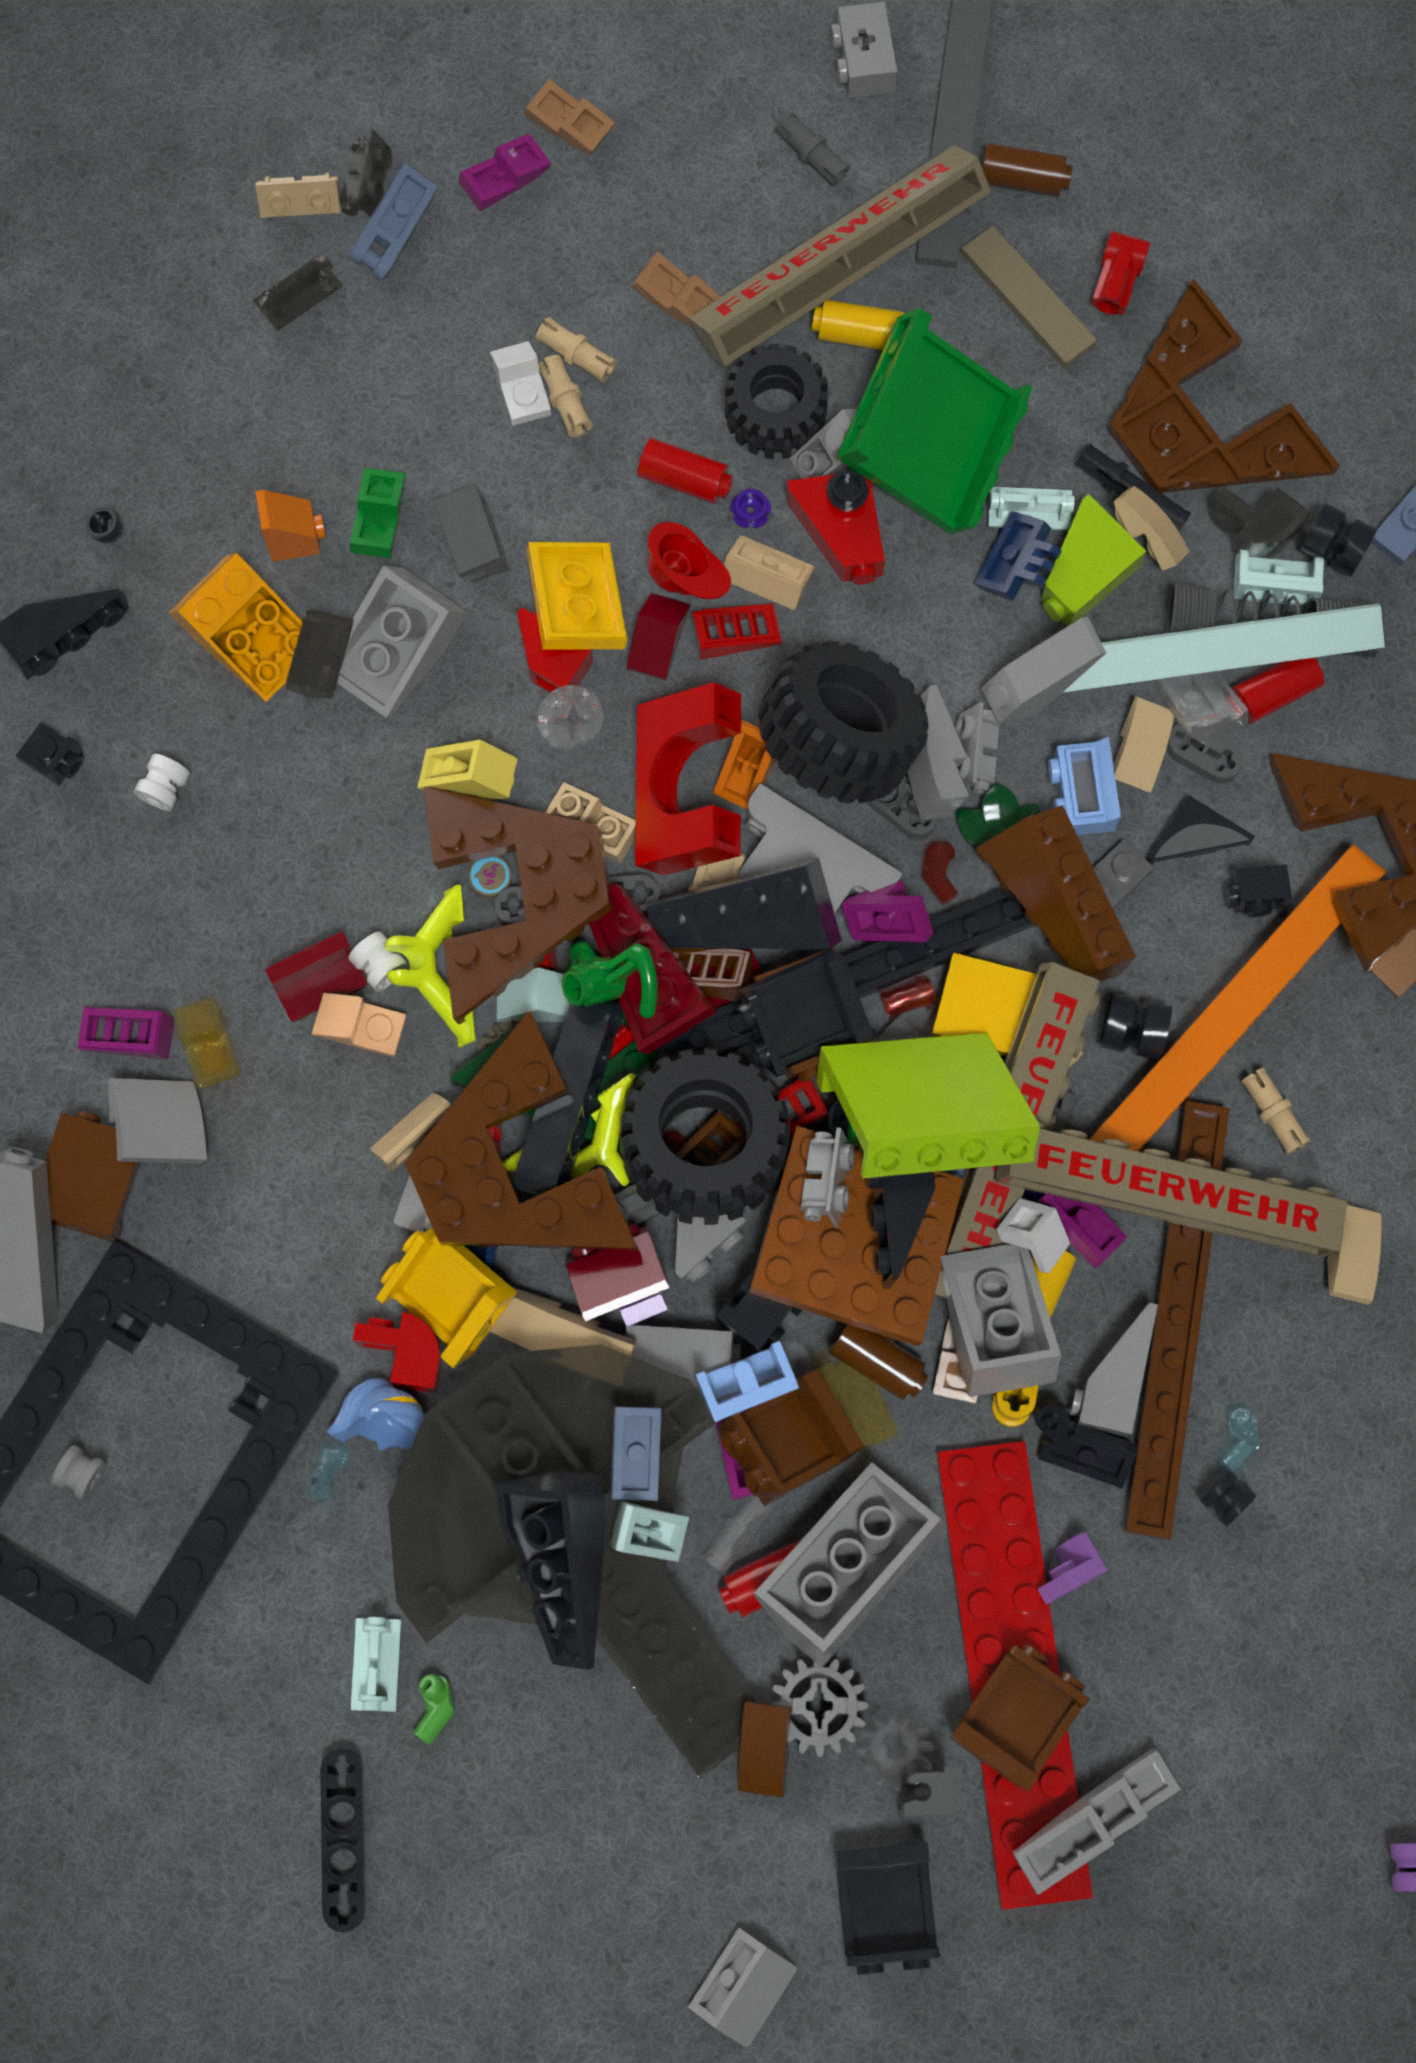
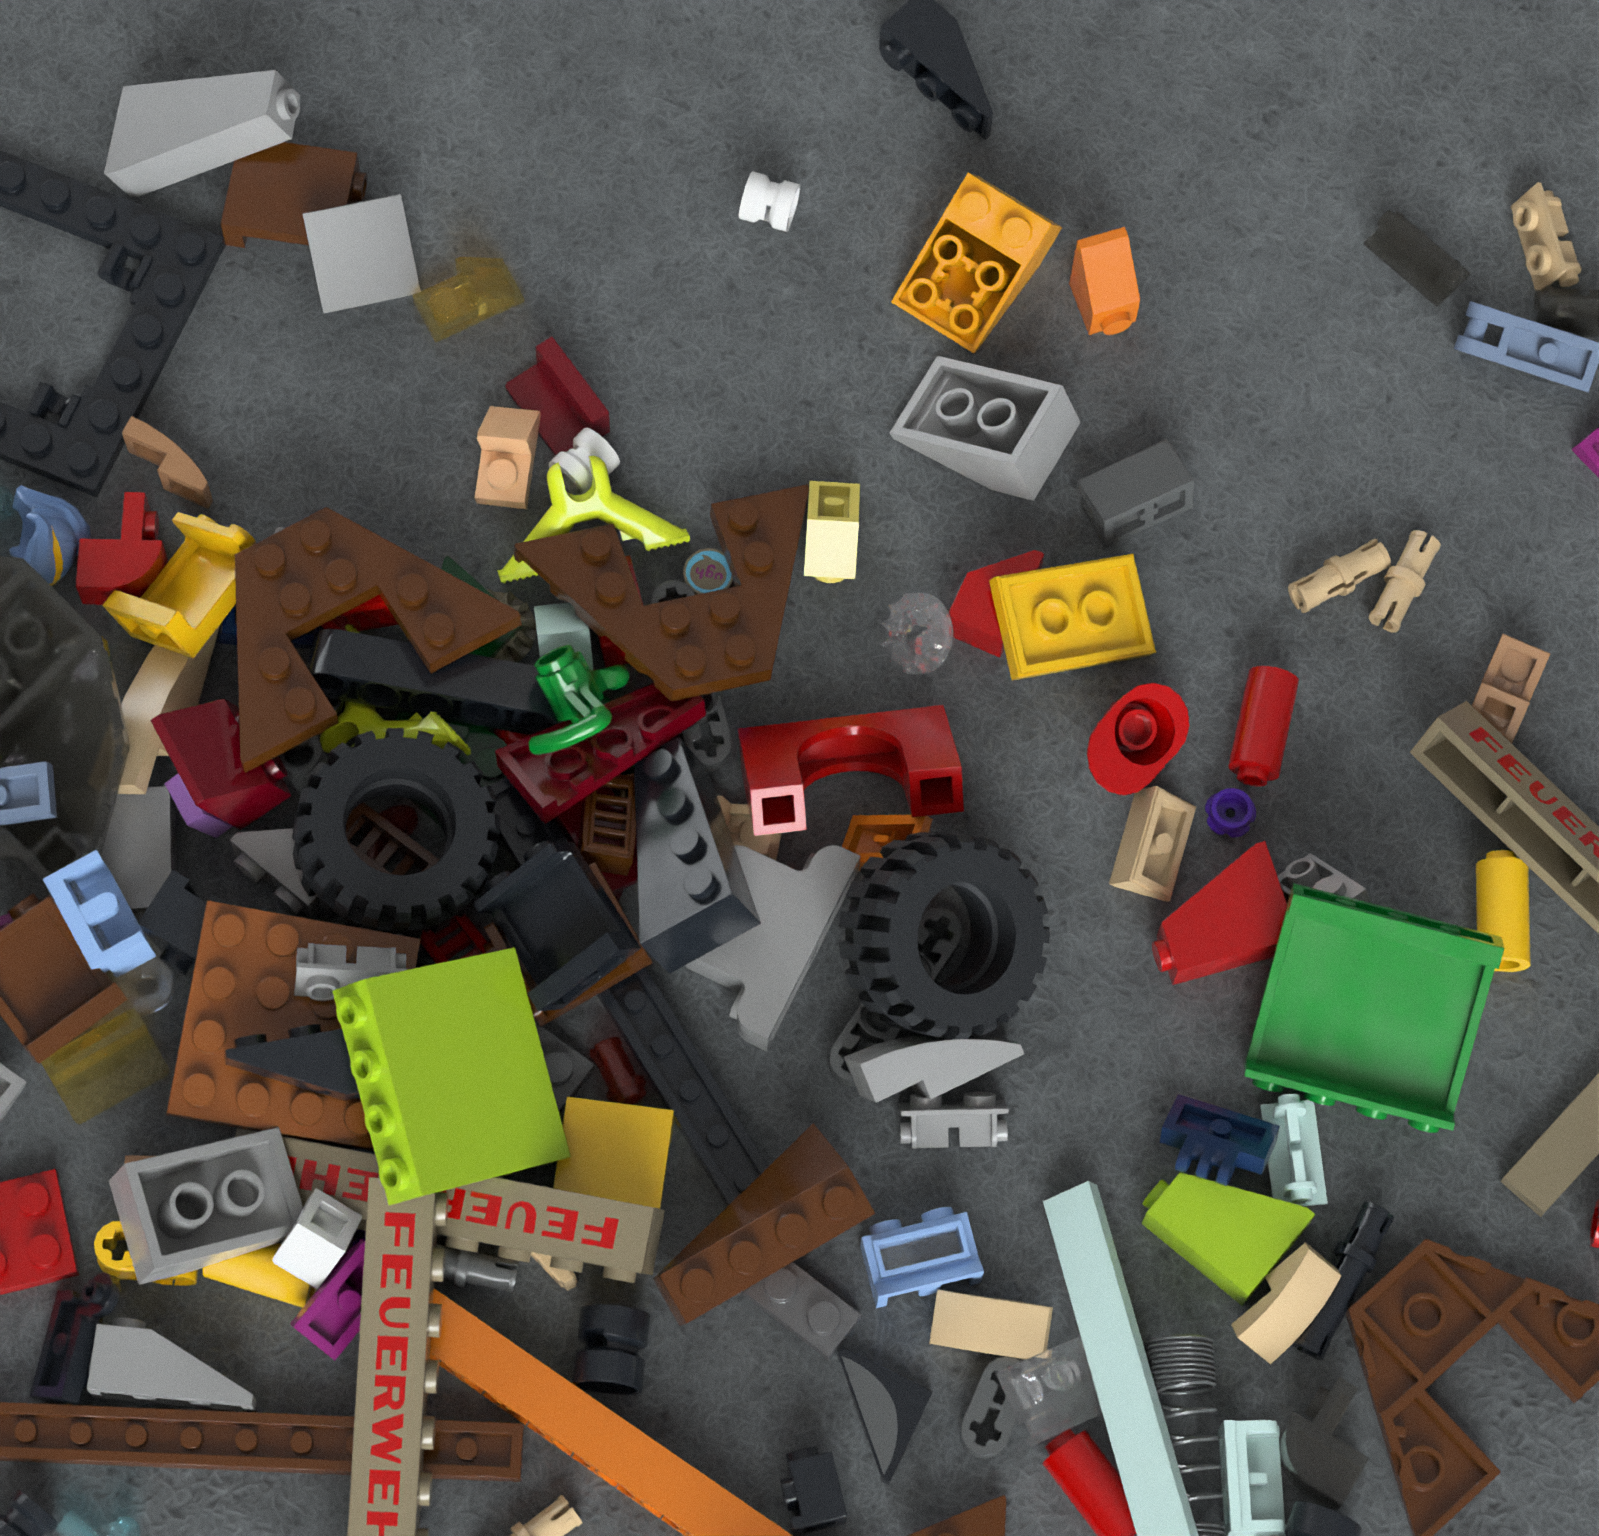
camera: 80 degrees right, 5 degrees down
(51, 754) = (788, 84): black bracket -> none
(98, 523) = (1076, 93): black hinge -> none
(153, 1035) = (468, 240): magenta slope -> none
(319, 654) = (952, 342): clear smoke slope -> none
(333, 1295) = (175, 468): none -> medium nougat slope
(377, 512) = (1155, 388): green slope -> none
(410, 1132) = (373, 516): tan slope -> none
(521, 383) = (1347, 524): white slope -> none
(616, 829) = (795, 677): tan slope -> none
(657, 635) = (1045, 722): dark red slope -> none
(723, 646) = (1052, 771): red slope -> none
(781, 371) = (1388, 782): black tyre -> none
(847, 490) = (1259, 910): black plate -> none
(879, 1360) = (148, 1093): reddish brown brick -> none
(887, 915) = (713, 1027): magenta slope -> none
(935, 868) = (788, 1087): clear red arm -> none
(997, 813) = (869, 1153): dark green plate -> none
(1043, 672) = (1050, 1172): light grey slope -> none

